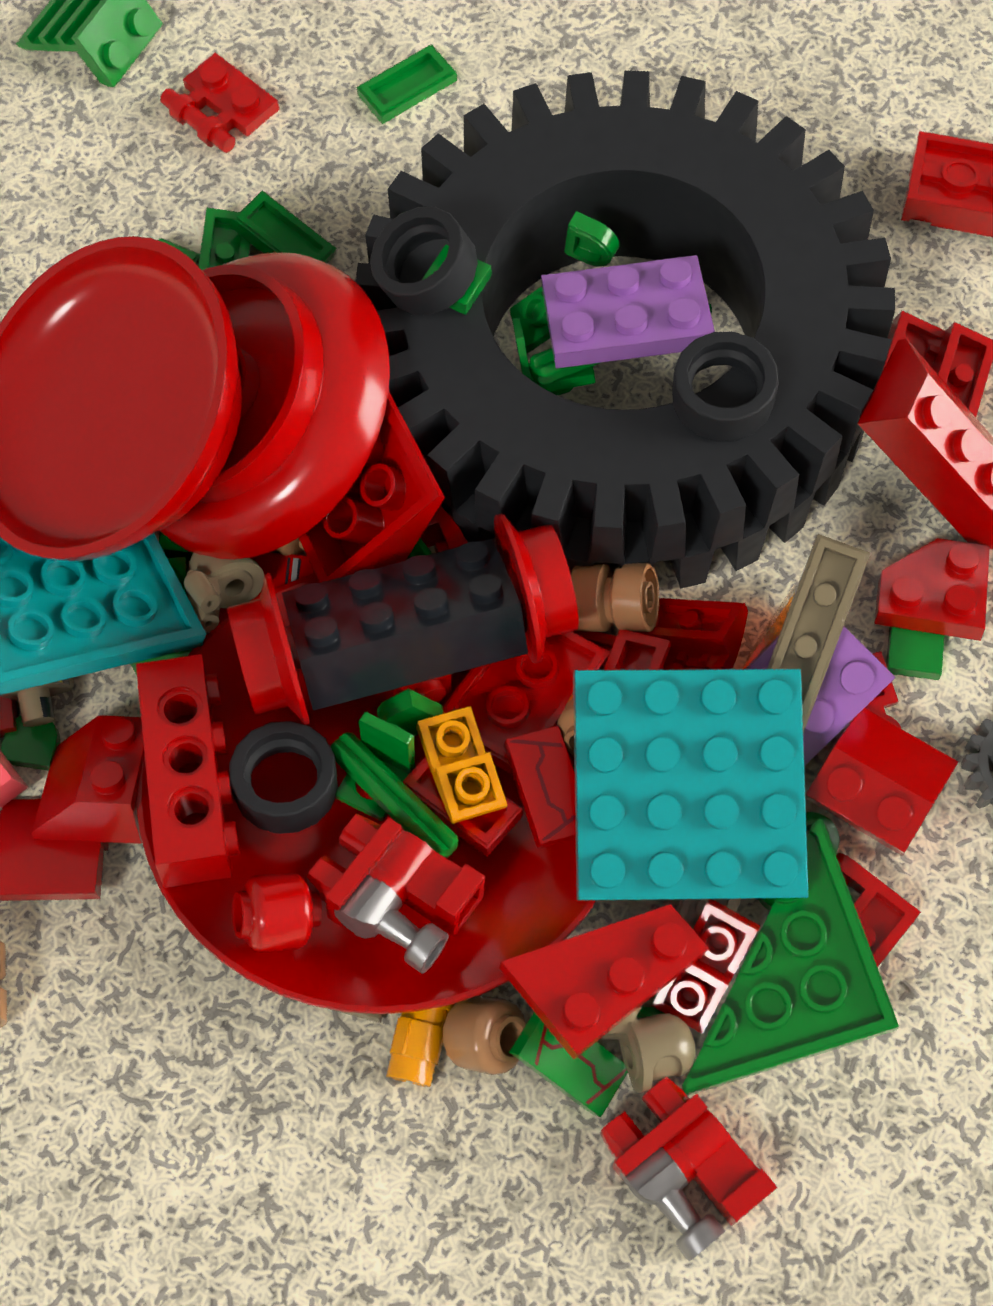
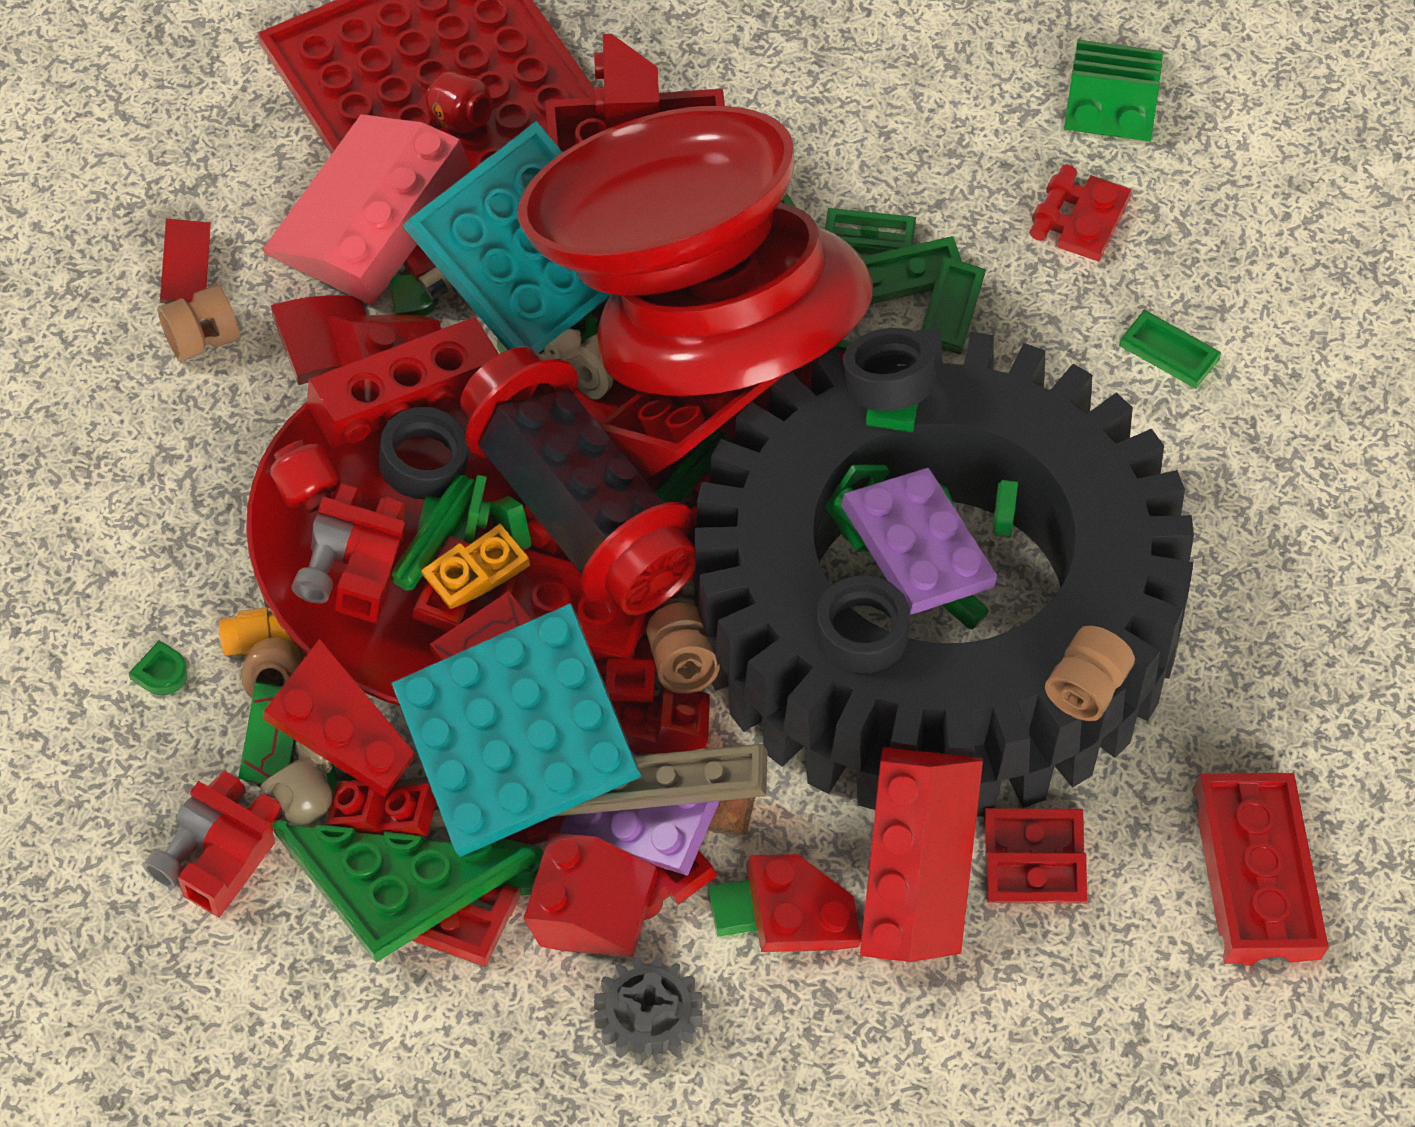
camera: 65 degrees right, 10 degrees down
(422, 1166) = (160, 670): none -> green tile
(854, 197) = (1089, 673): none -> medium nougat wheel

